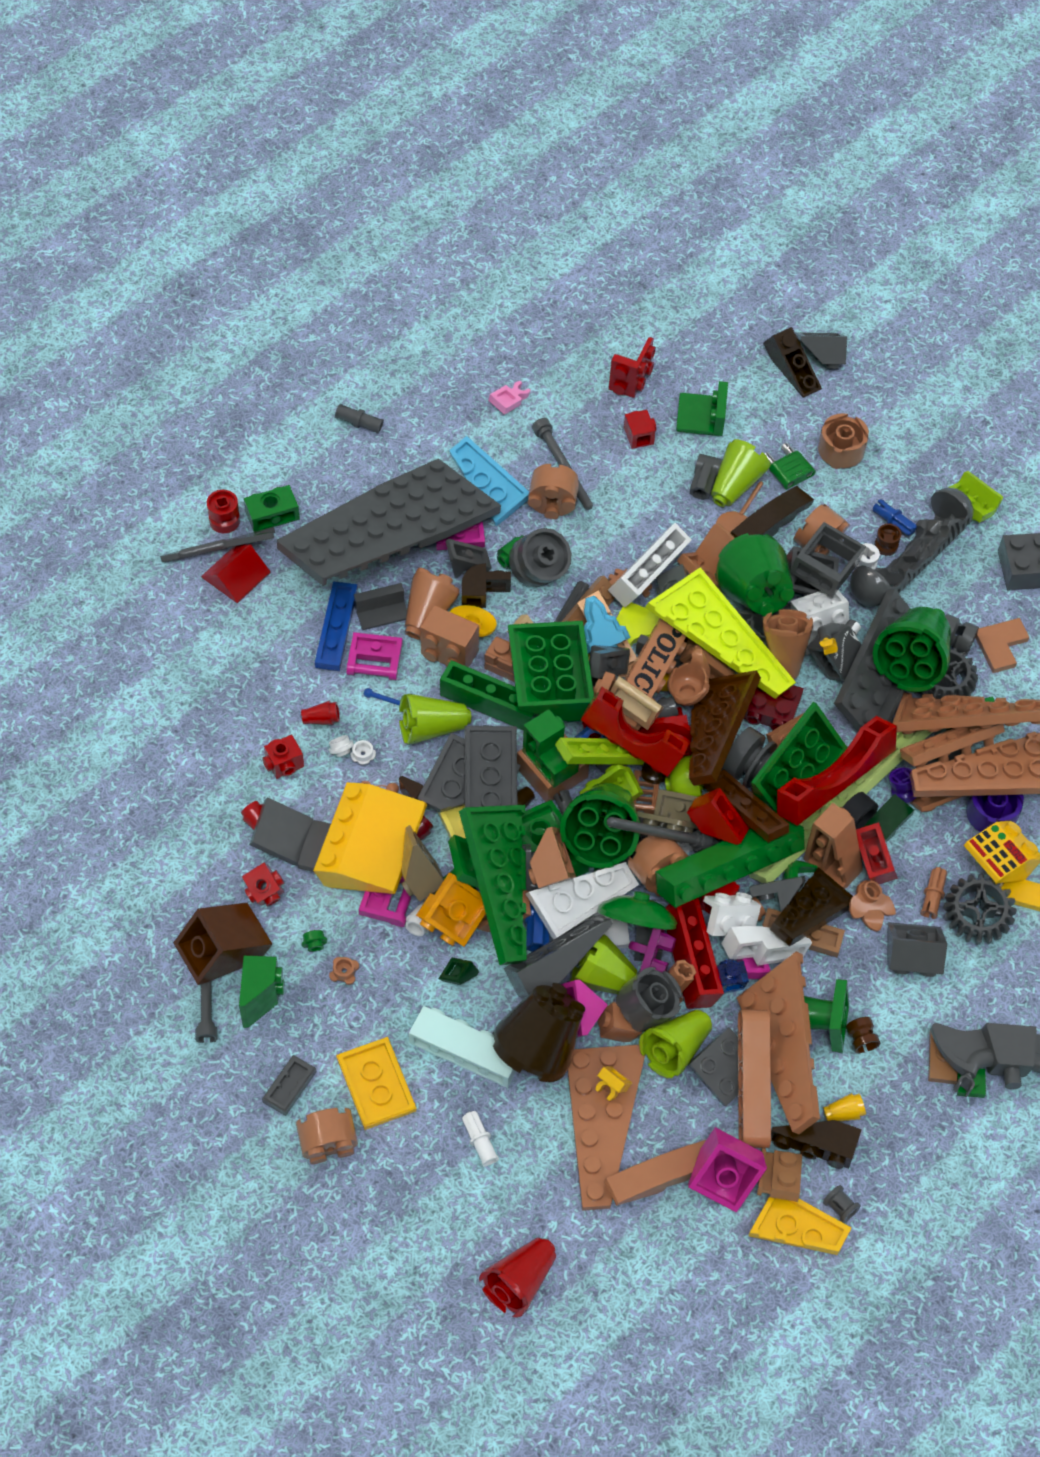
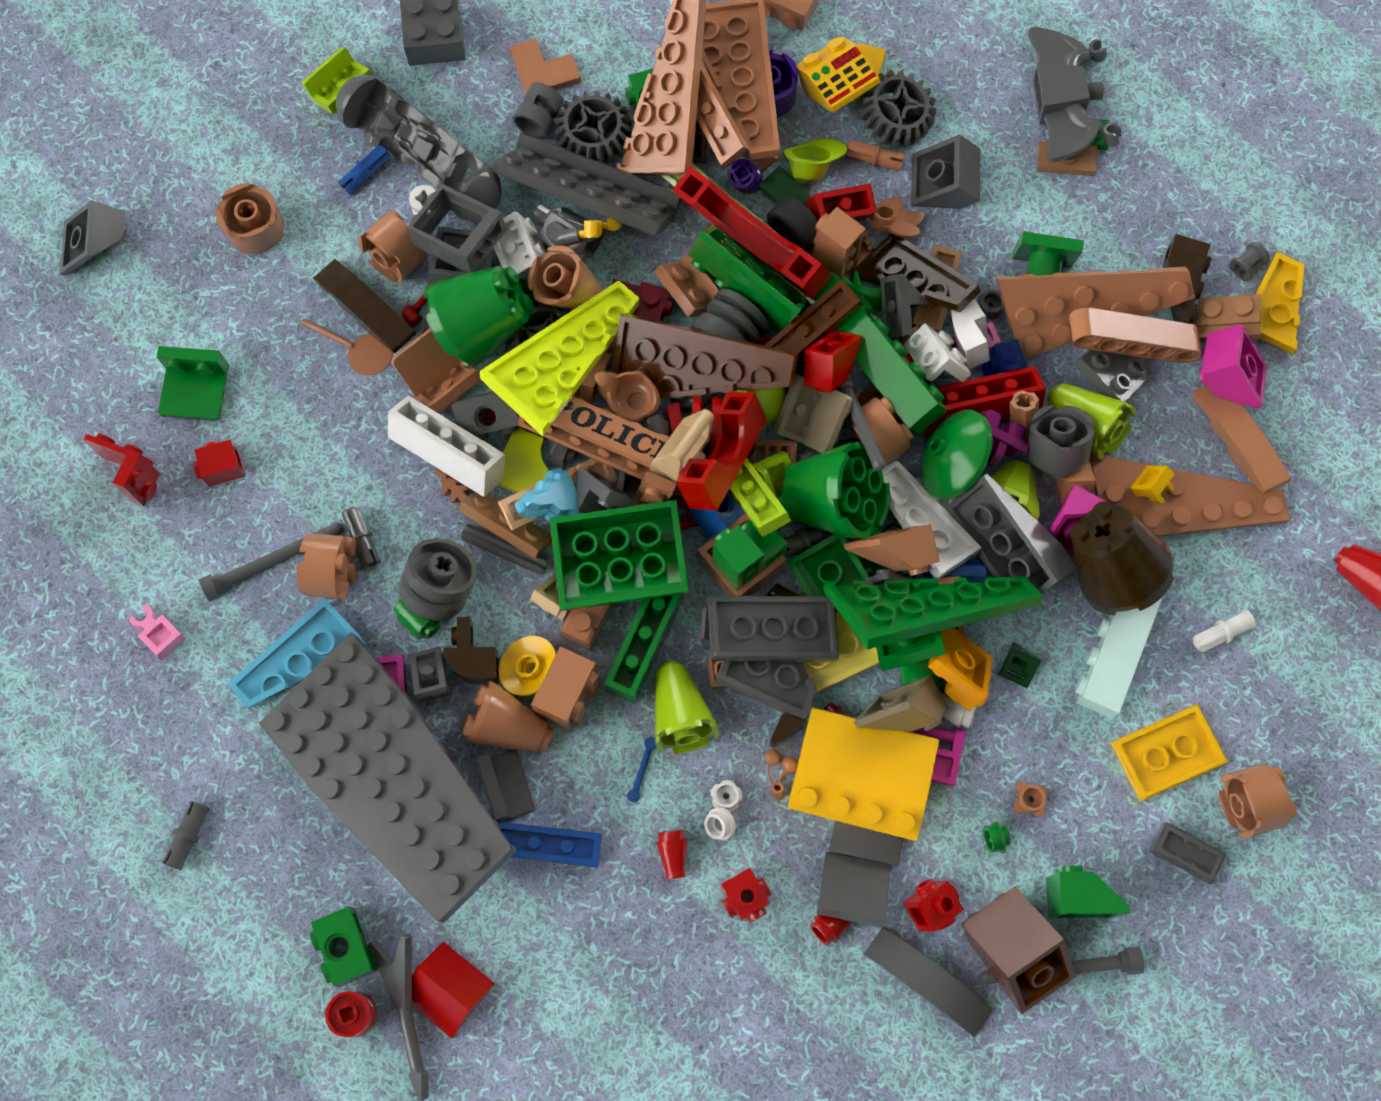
camera: 90 degrees left, 15 degrees up
(204, 883) = (928, 980): none -> dark grey slope
(375, 648) = (570, 787): dark pink plate -> none
(580, 517) = (364, 545): none -> dark grey axle
(705, 475) = (291, 382): dark grey piece -> none
(738, 472) = (299, 342): lime cone -> none
(791, 468) = (285, 283): green piece -> none
(792, 361) = (107, 278): dark brown slope -> none
(845, 1109) = (1141, 251): yellow cone -> none
(862, 1033) = (1061, 227): reddish brown wheel -> none
(888, 539) = (399, 177): reddish brown wheel -> none
(914, 649) = (582, 137): green cone -> none
(924, 838) = (813, 158): none -> lime piece

